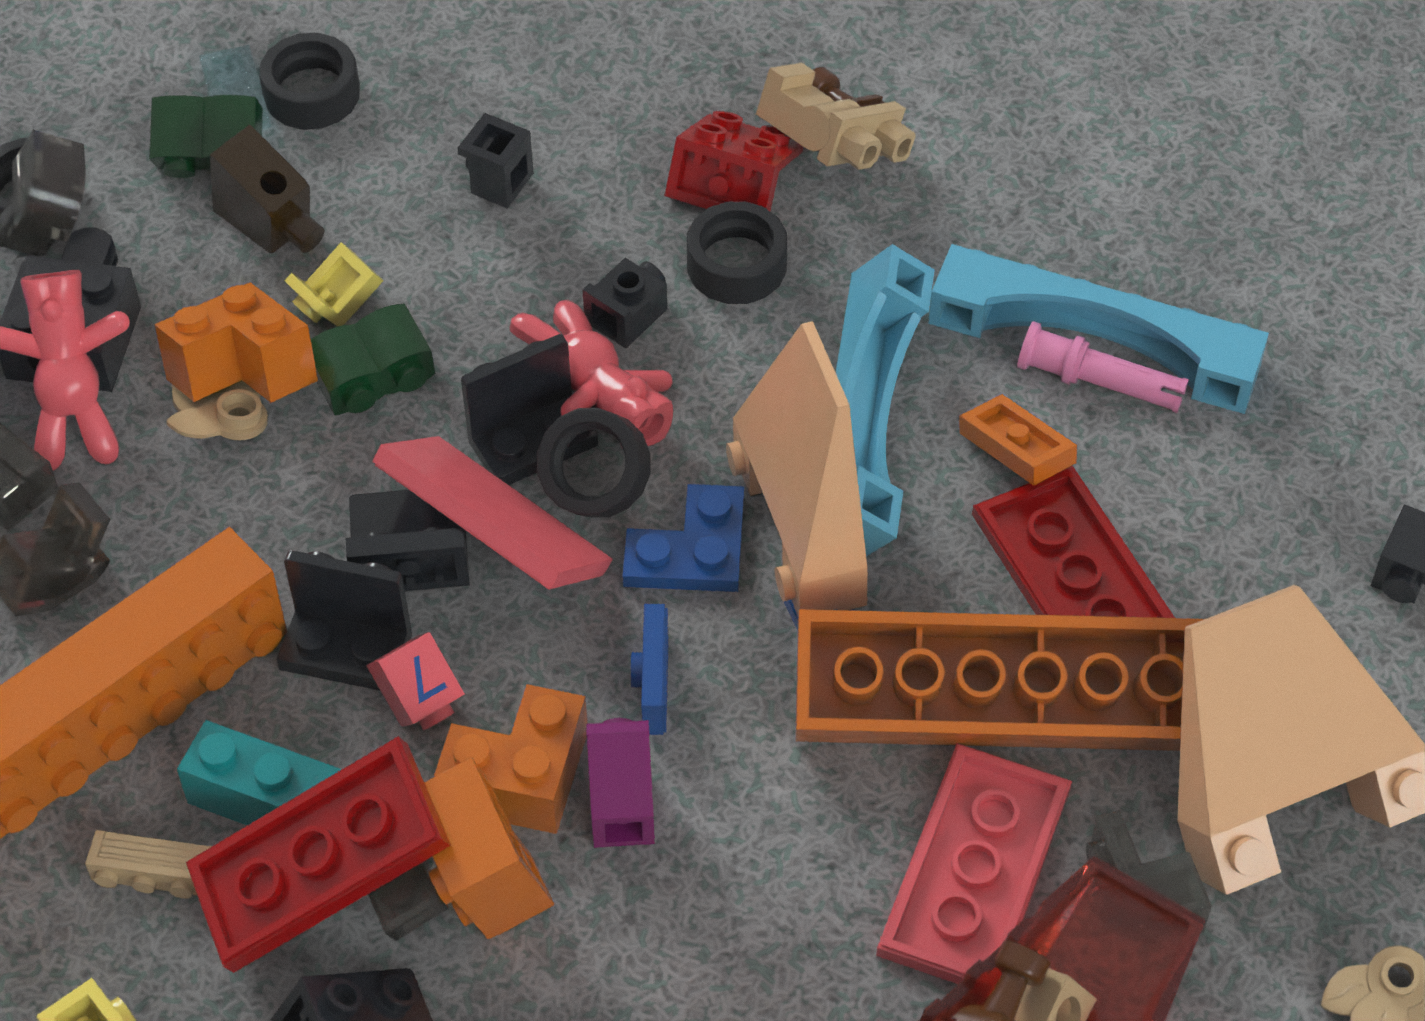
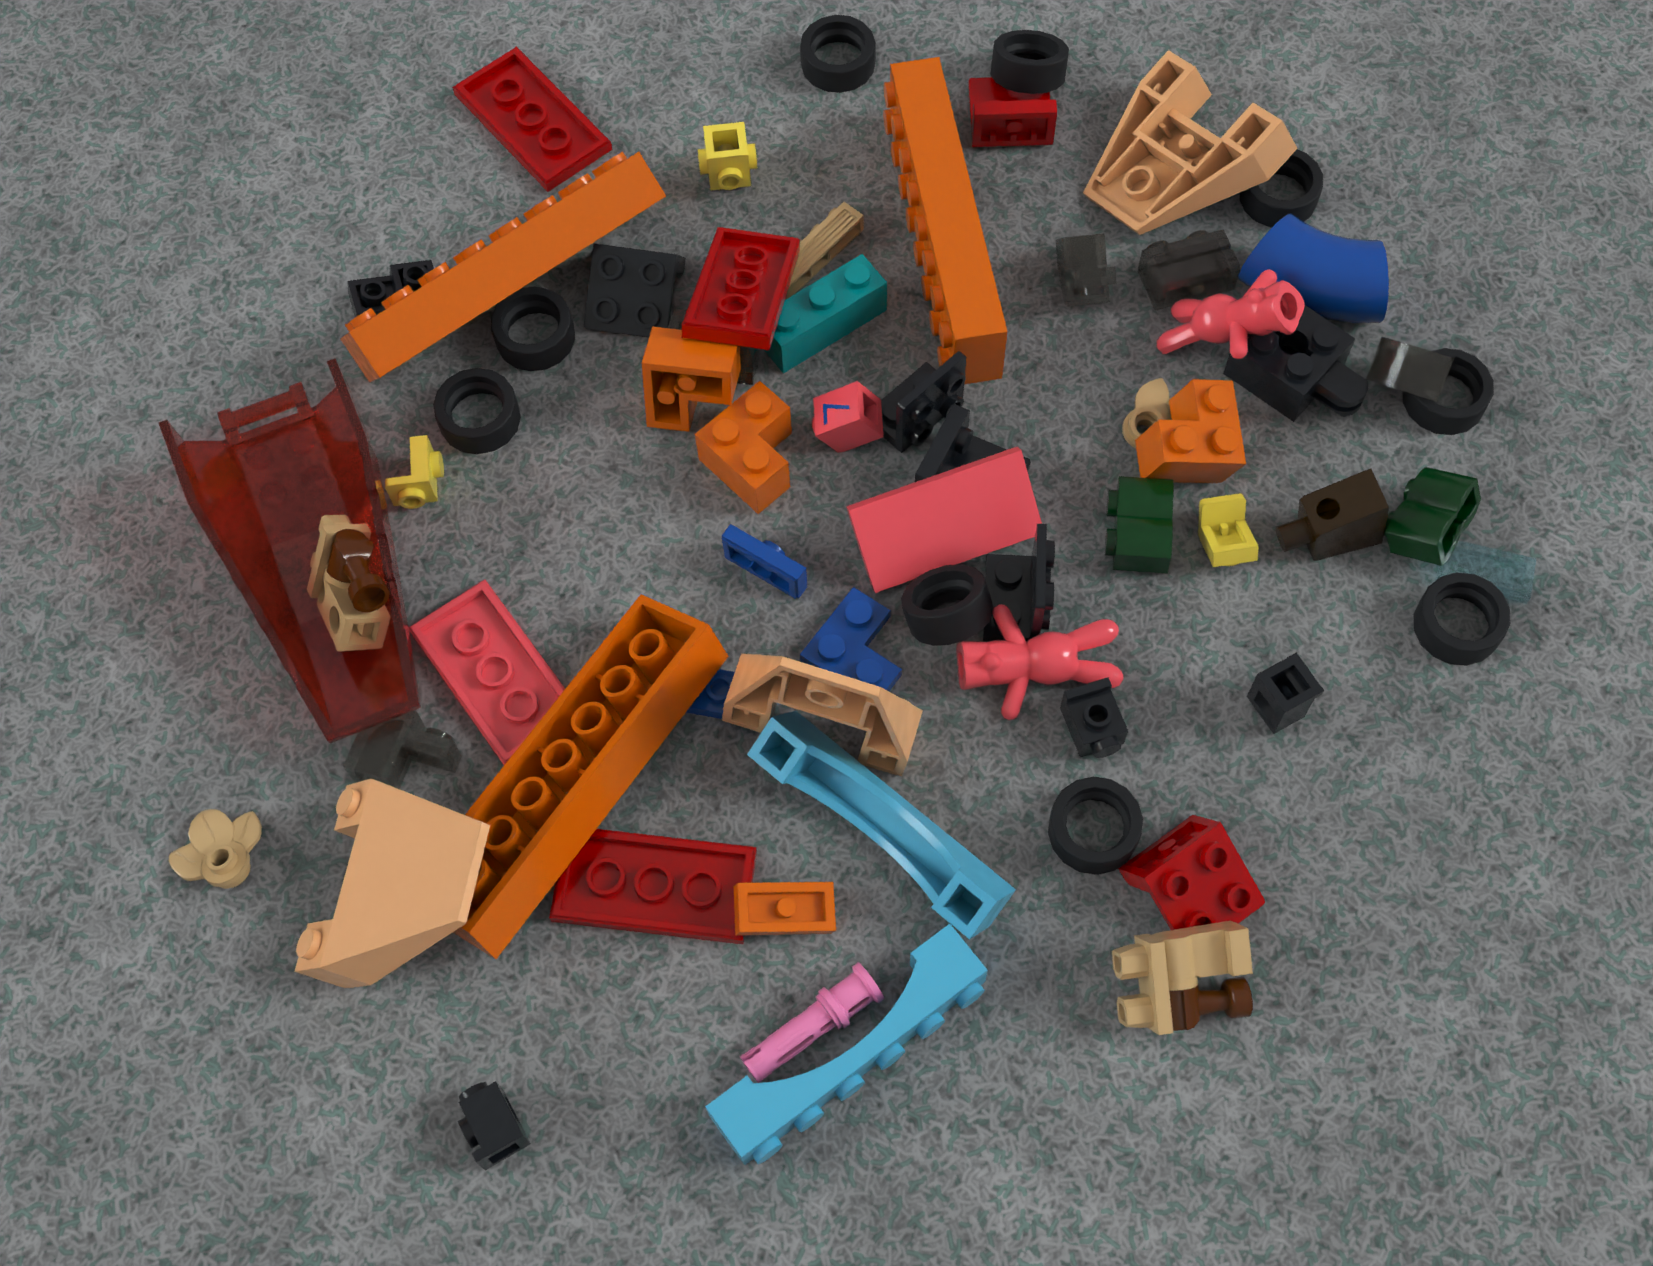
camera: 125 degrees right, 10 degrees up
(620, 783) = (687, 487): magenta slope -> none

